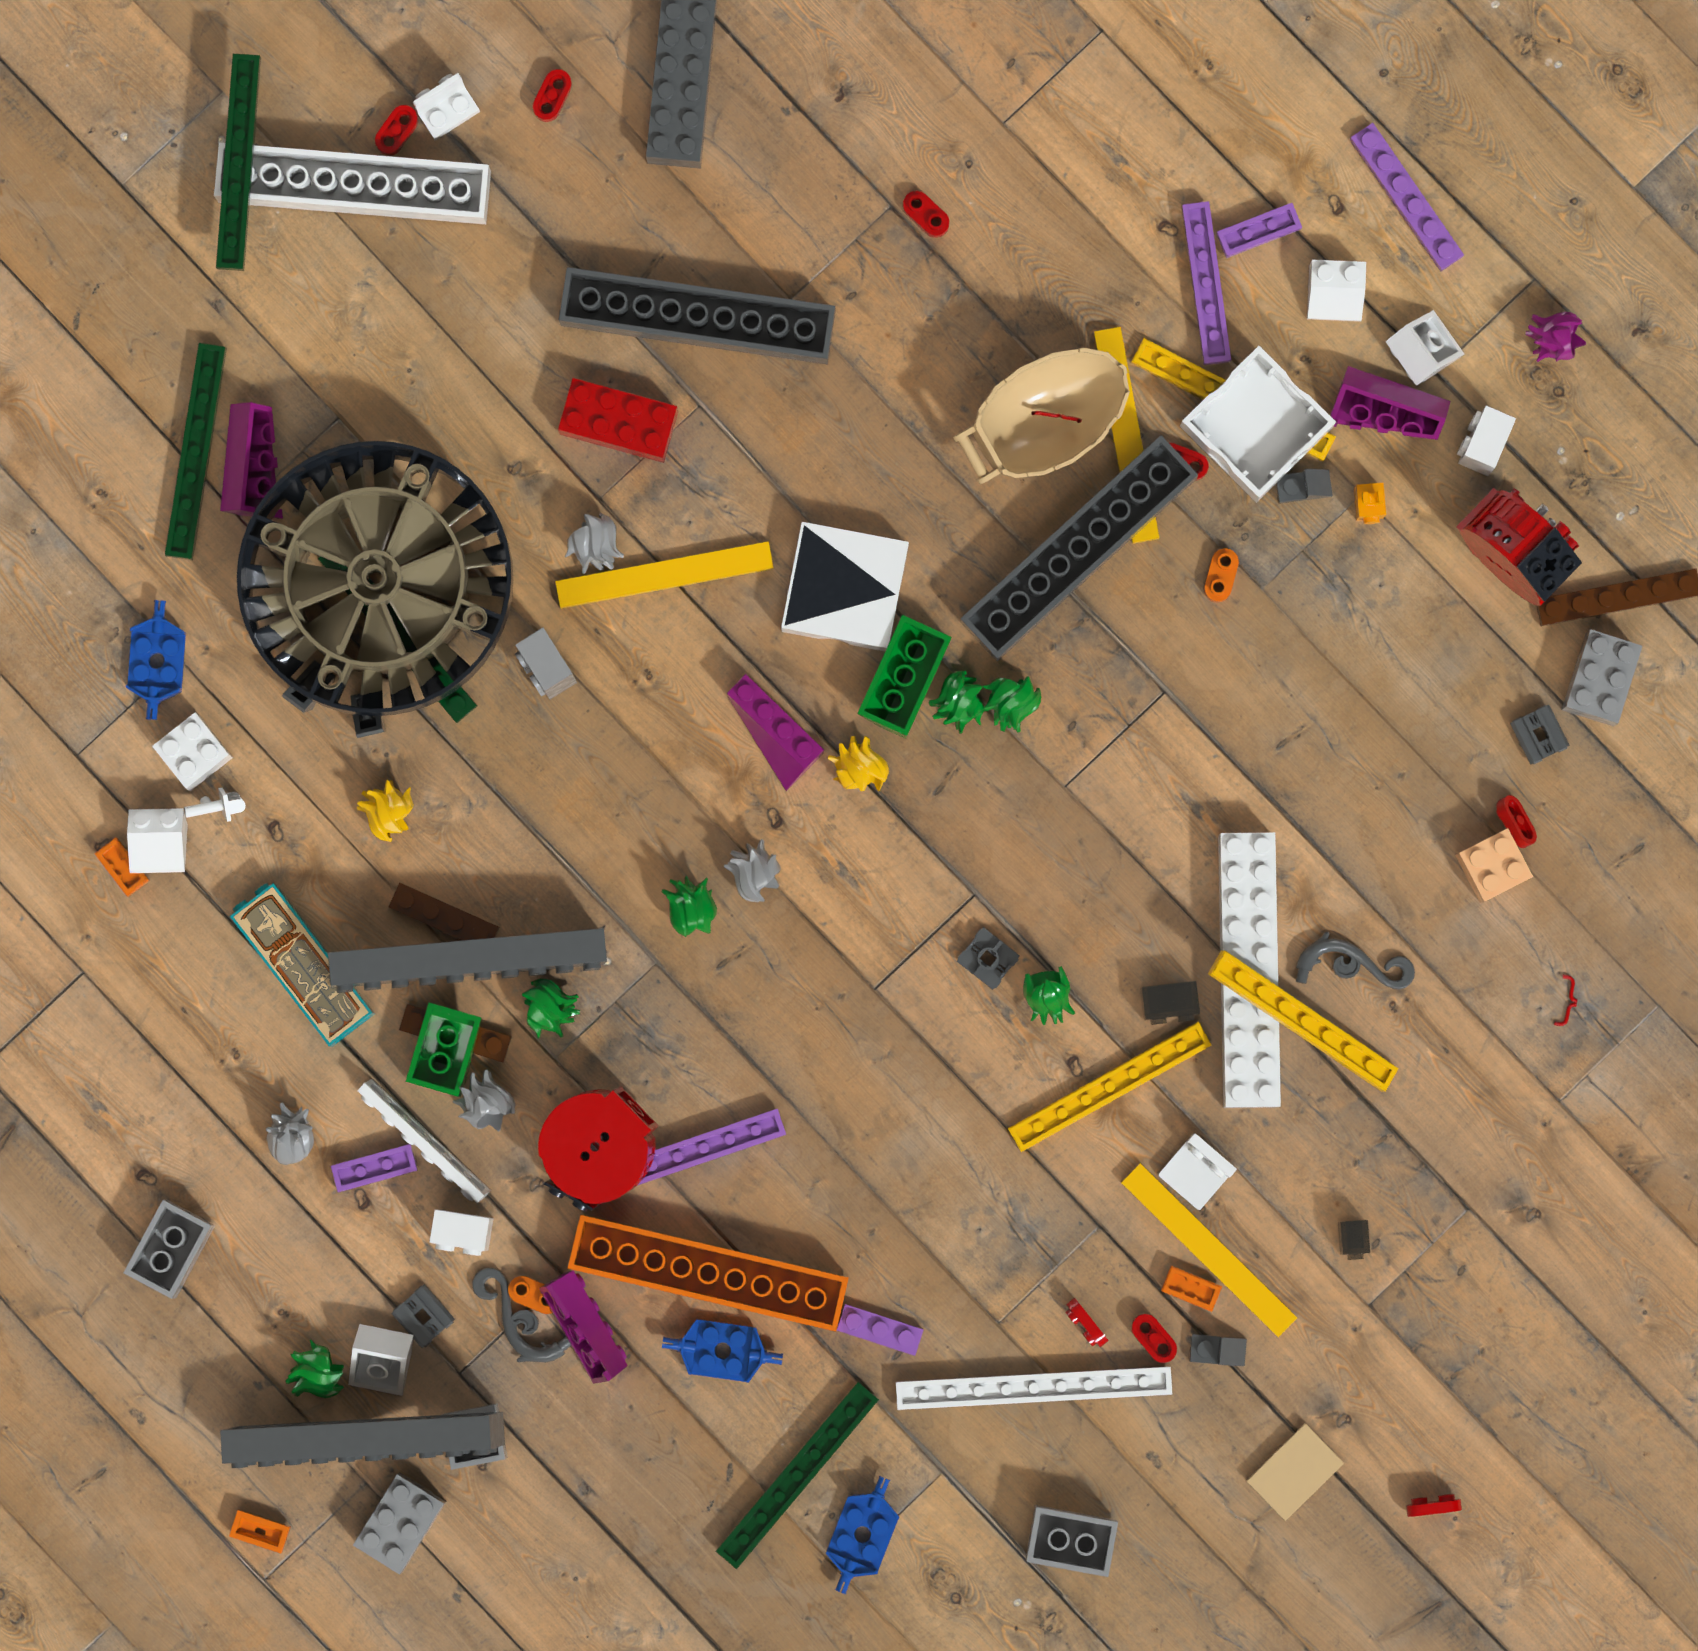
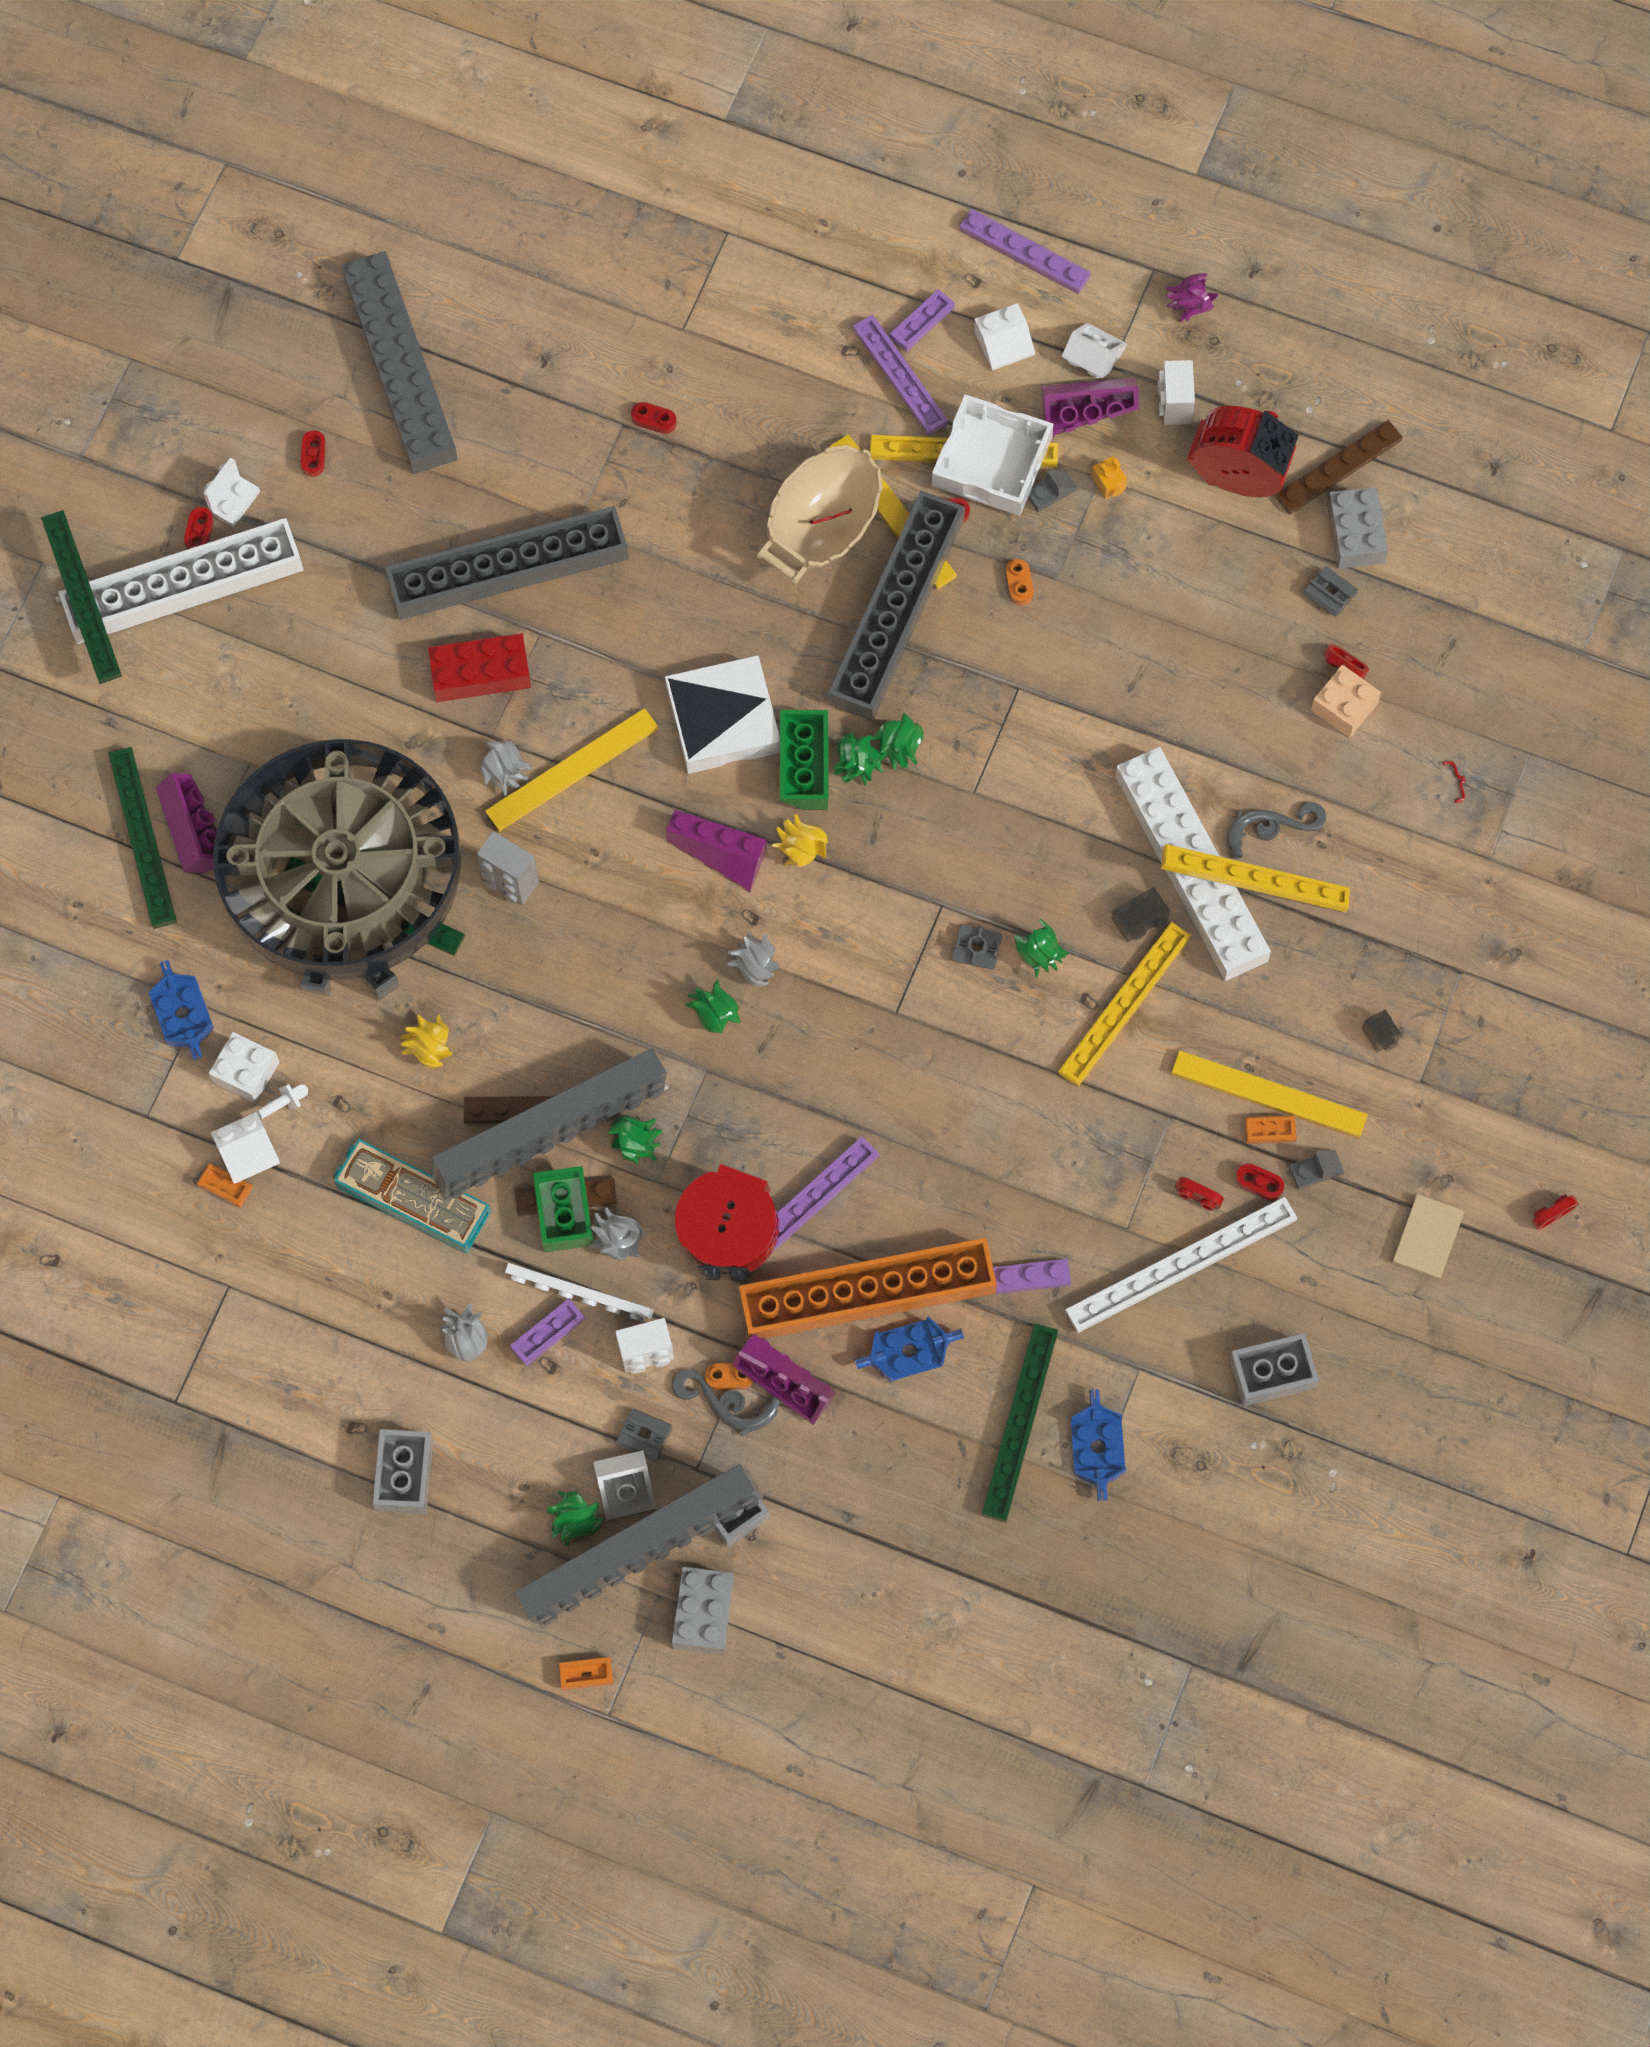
camera: 25 degrees left, 15 degrees down
(1196, 1171) = (1229, 1034): white bracket -> none

